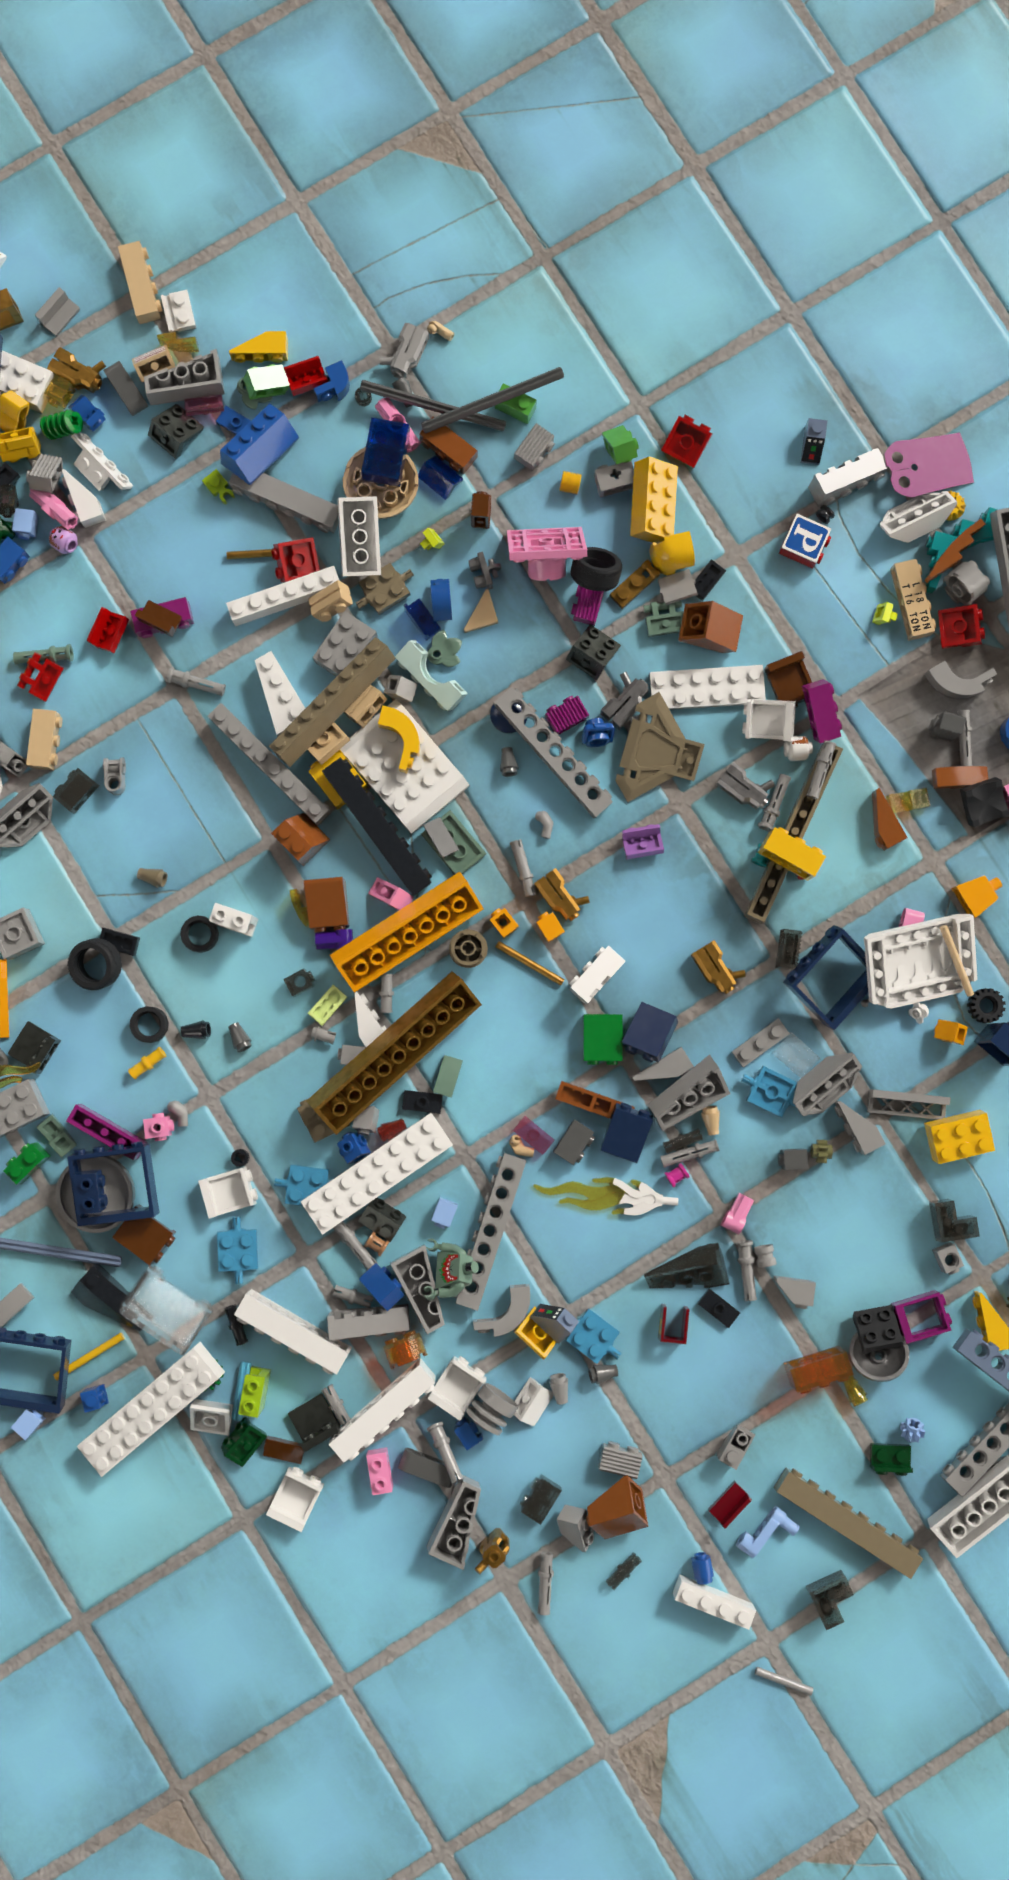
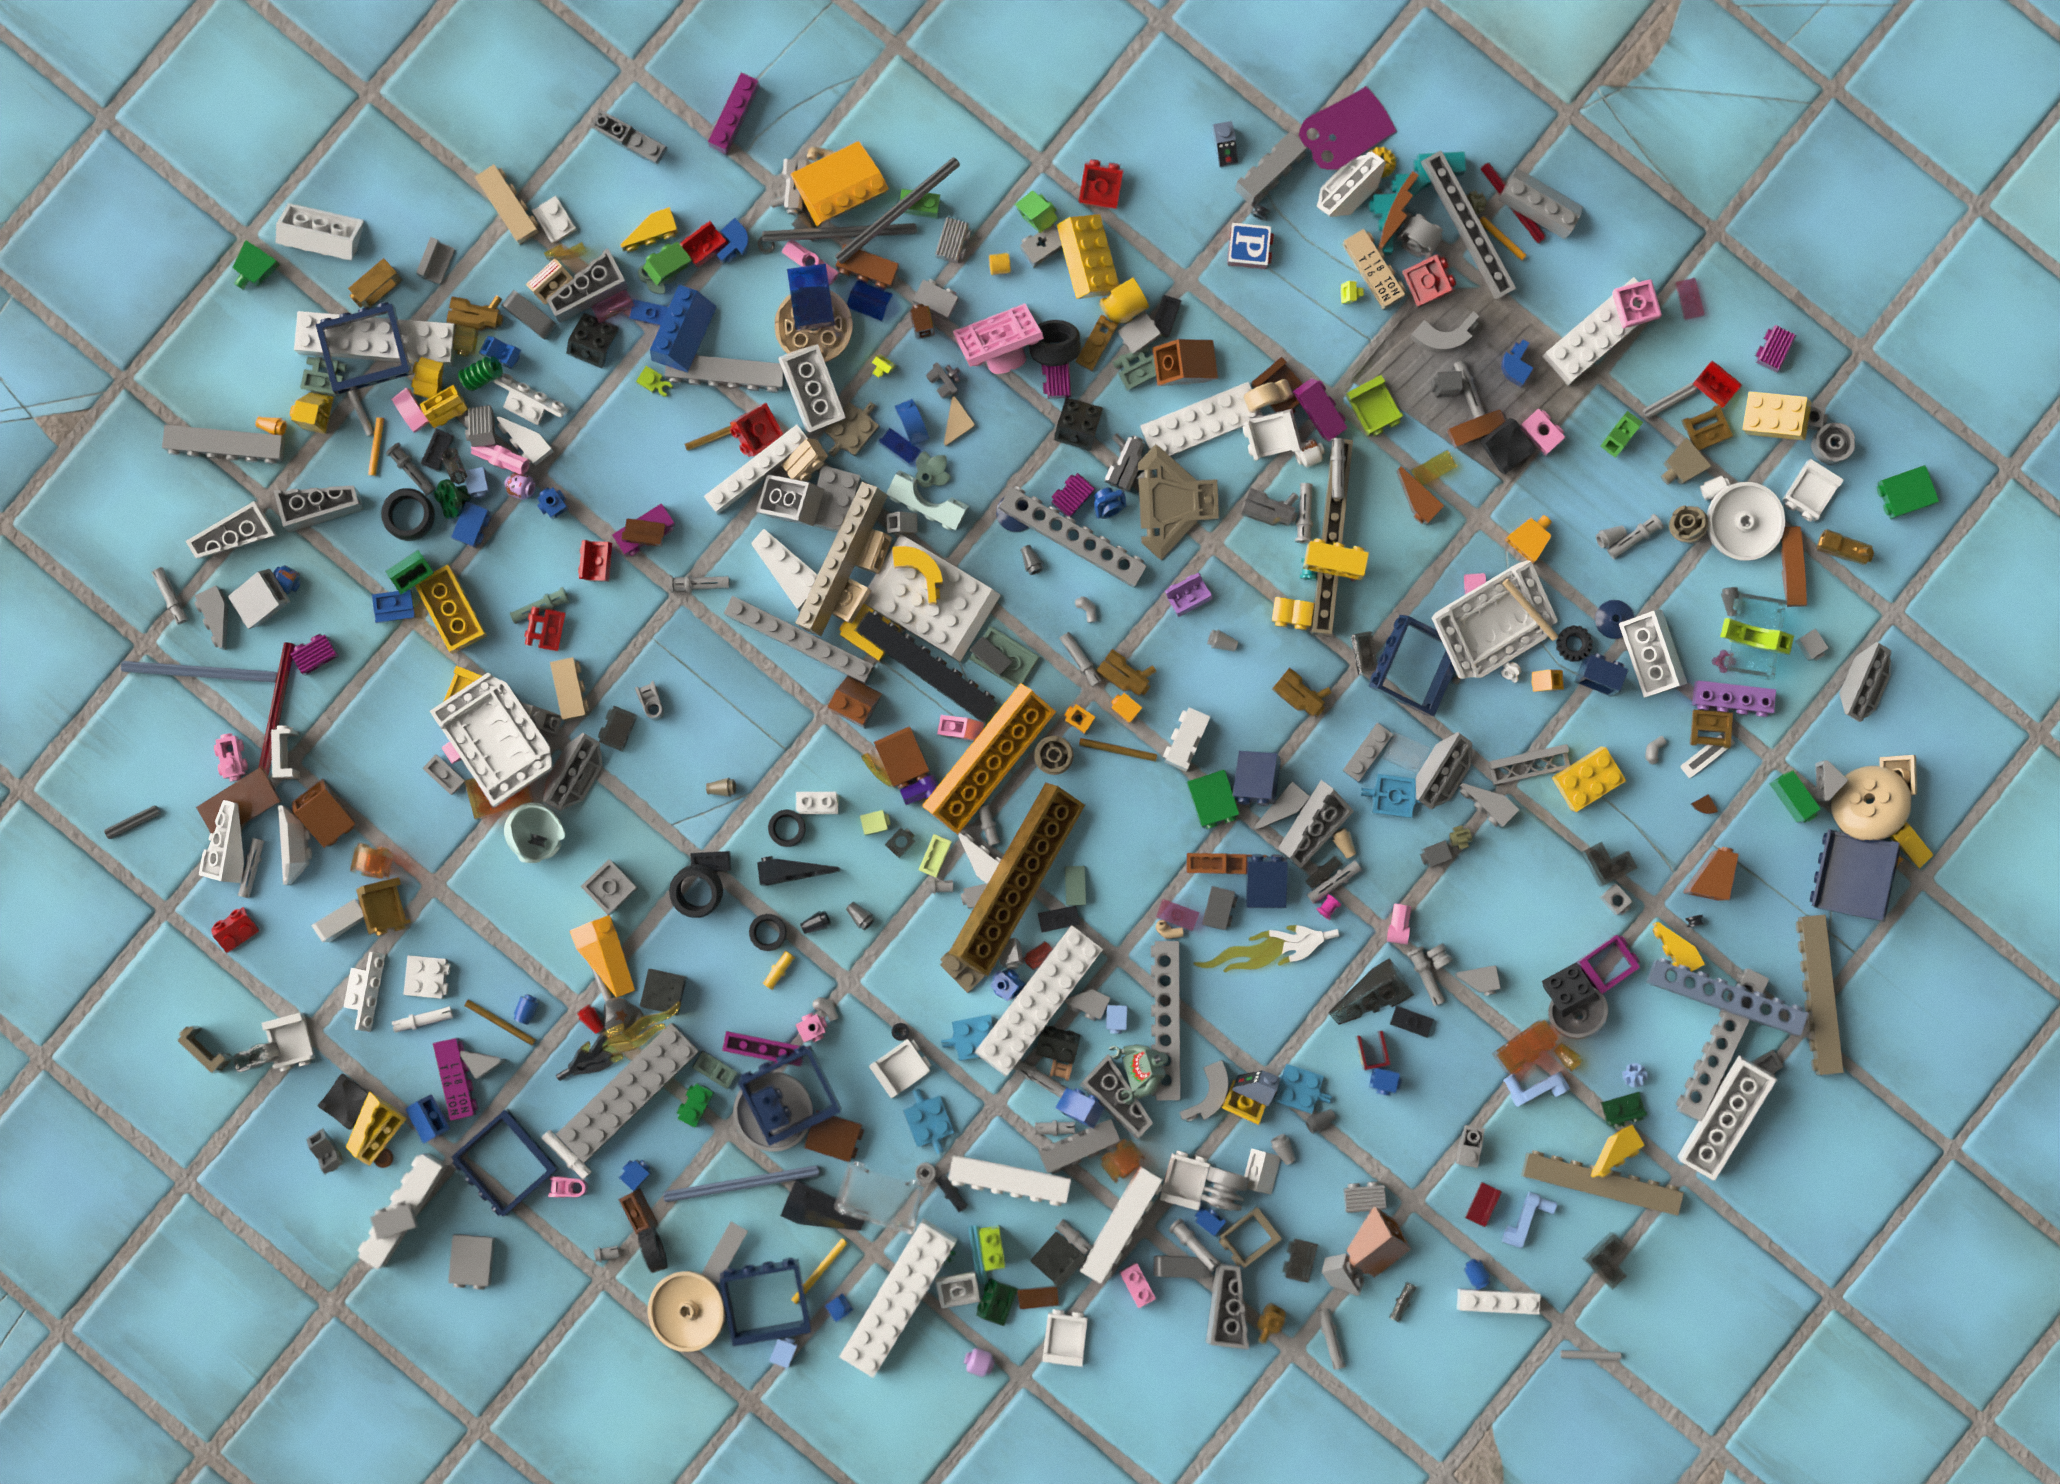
camera: 15 degrees left, 0 degrees up
(86, 564) = (554, 509): none -> blue brick
(179, 971) = (777, 871): none -> black wedge
(207, 1494) = (979, 1362): none -> lavender head
(221, 1296) = (925, 1172): none -> light grey wheel
(270, 258) = (628, 137): none -> slope
(282, 955) = (875, 822): none -> yellowish green brick
(304, 632) = (790, 500): none -> light grey brick
(373, 267) = (733, 113): none -> magenta brick
(424, 1189) = (1090, 1002): none -> light grey slope
(448, 361) = (839, 183): none -> light orange slope
(503, 497) = (940, 301): none -> light grey brick
(506, 1477) = (1226, 1244): none -> dark tan window
(658, 894) = (1220, 640): none -> light grey cone
(675, 1358) = (1385, 1081): none -> blue brick
(733, 890) = (1293, 613): none -> yellow brick
(777, 680) = (1267, 395): none -> tan animal
(833, 1410) = (1519, 1096): none -> light blue beam
(871, 725) = (1374, 406): none -> lime panel
(874, 1495) = (1617, 1148): none -> yellow slope

